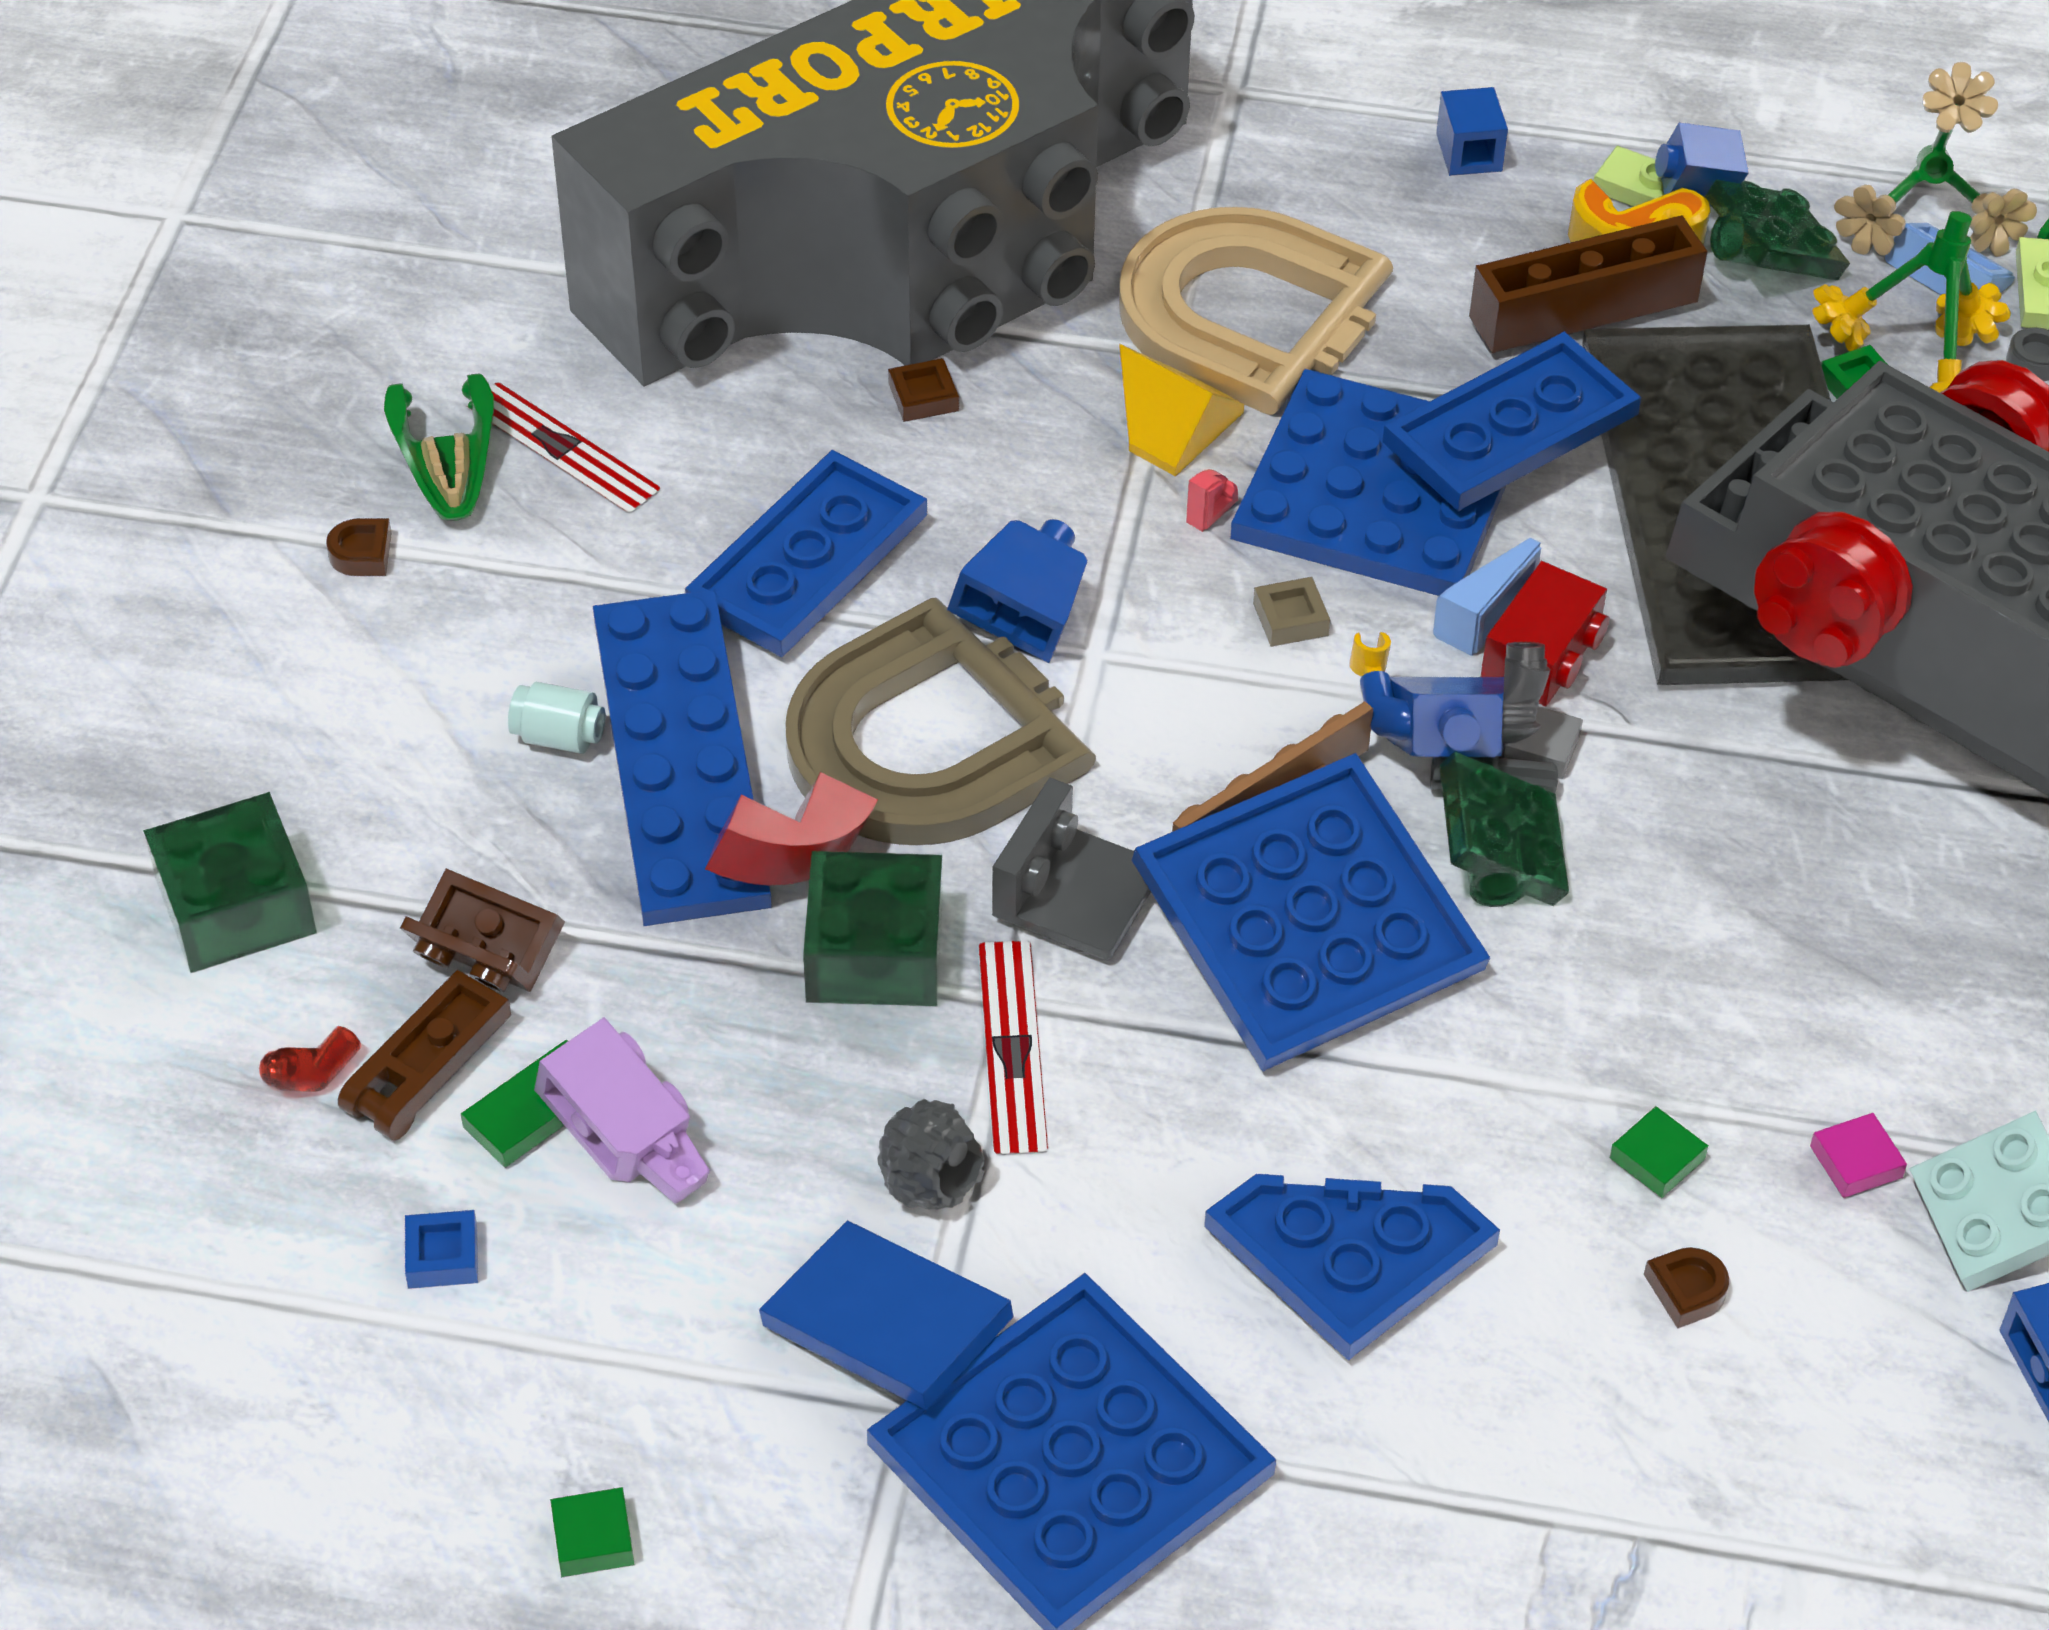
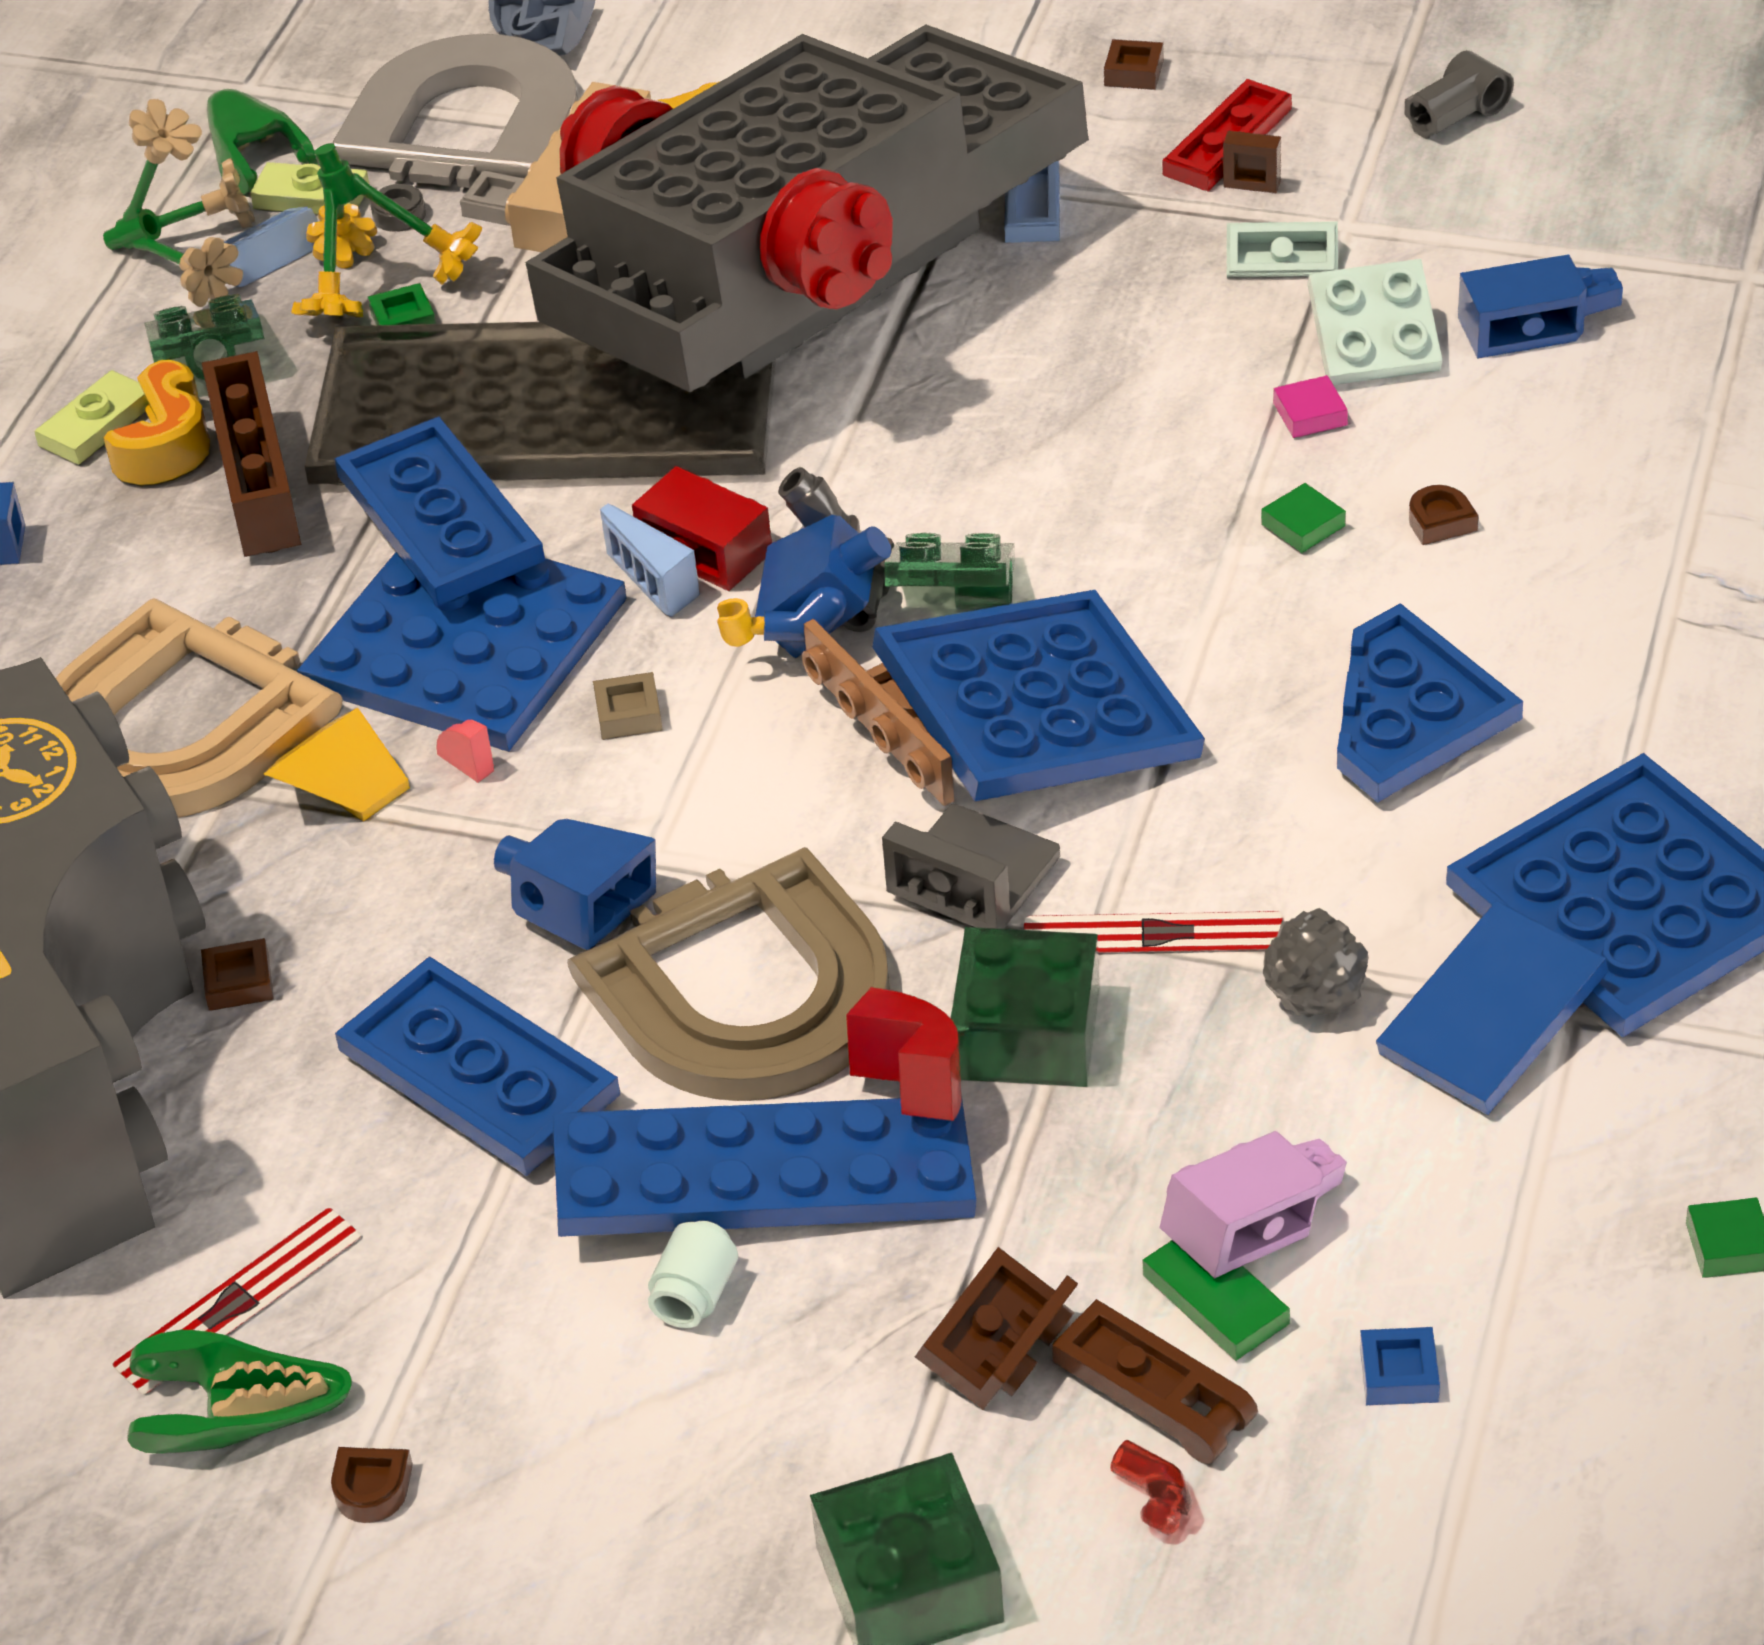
camera: 80 degrees left, 5 degrees down
(1699, 156) = (112, 357): brick -> none

